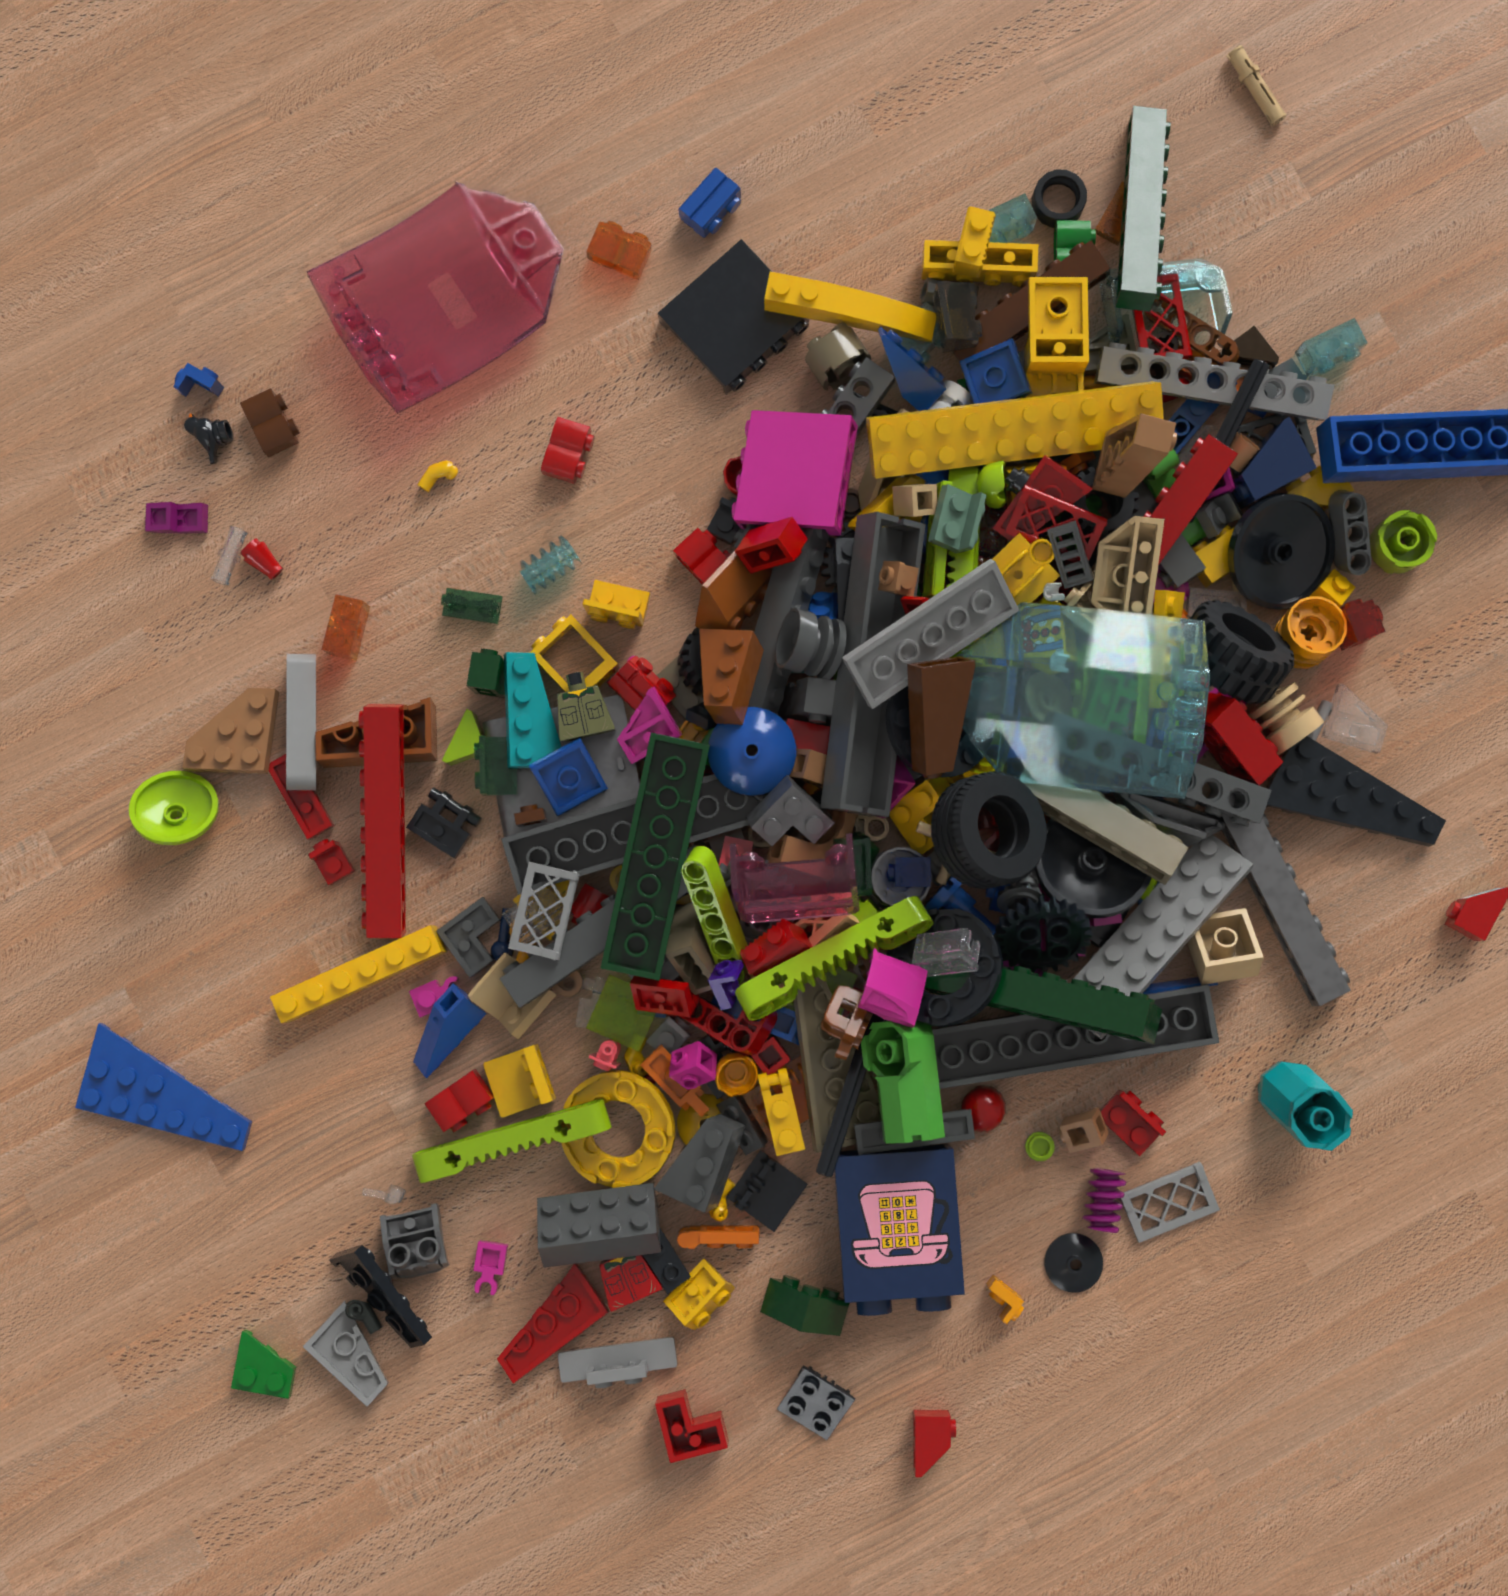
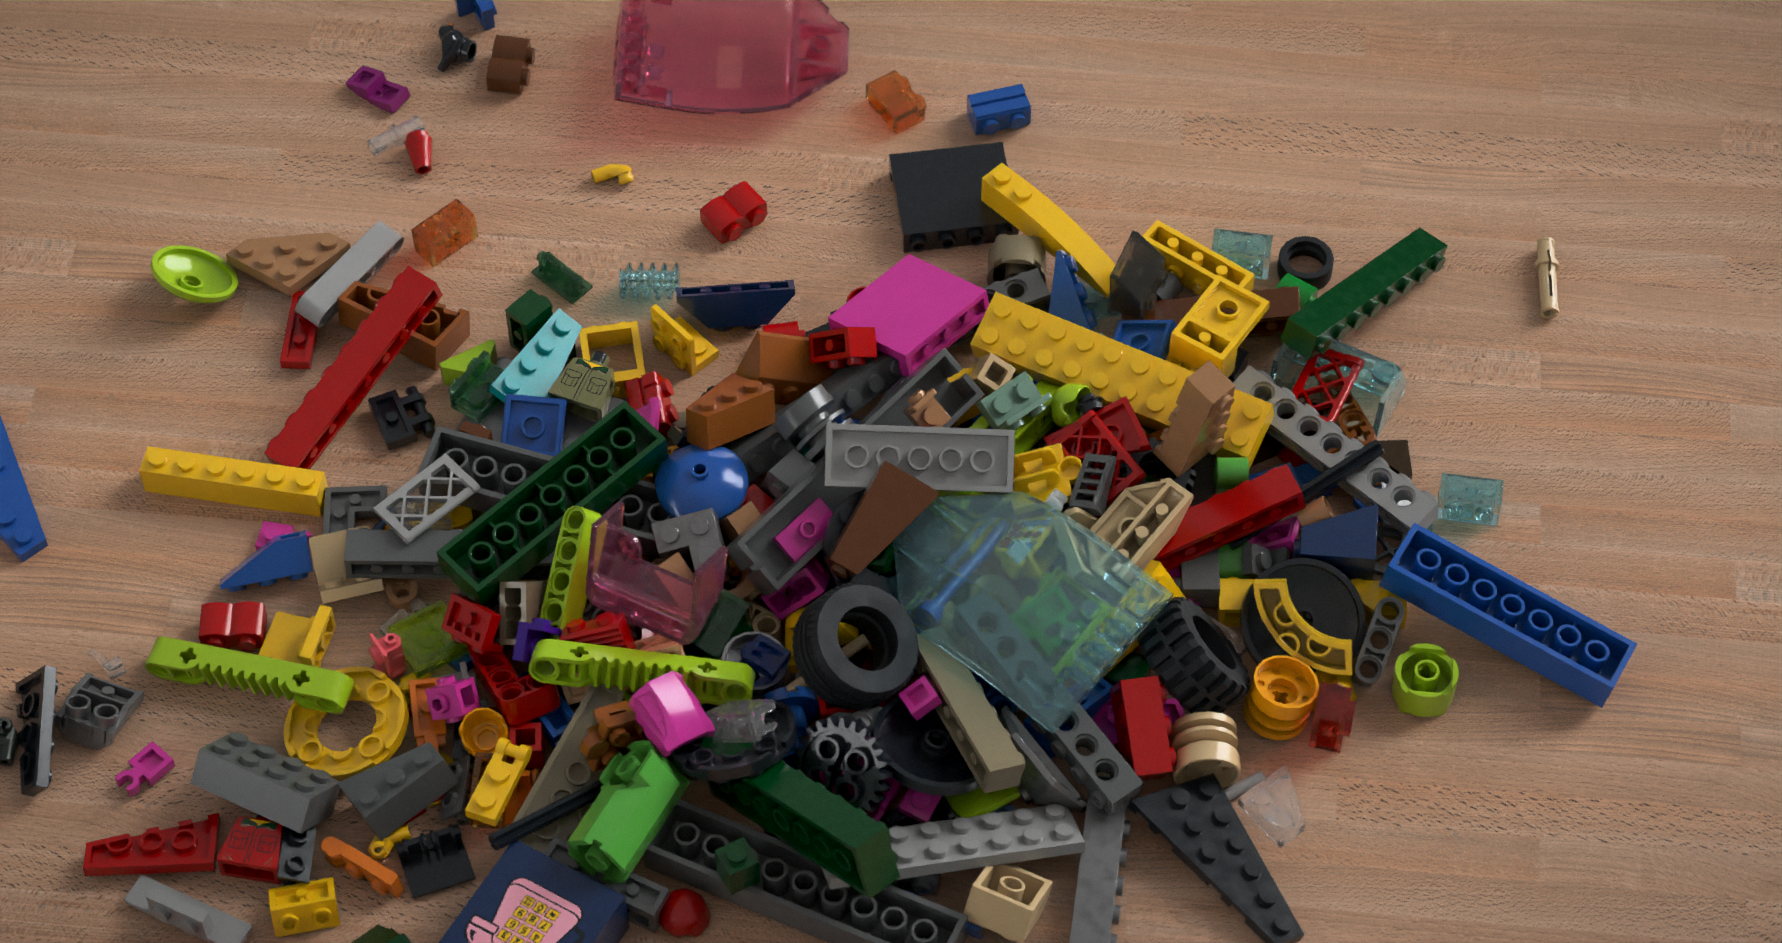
camera: 25 degrees right, 30 degrees down
(331, 860) = (285, 390): red bracket -> none
(633, 538) = (736, 304): none -> dark blue wedge
(869, 745) = (803, 530): none -> dark pink plate
(974, 242) = (1194, 236): yellow brick -> none
(1018, 1066) = (737, 865): none -> dark green brick
(1062, 835) = (920, 698): none -> dark pink plate
(1299, 575) = (1295, 634): none -> yellow brick

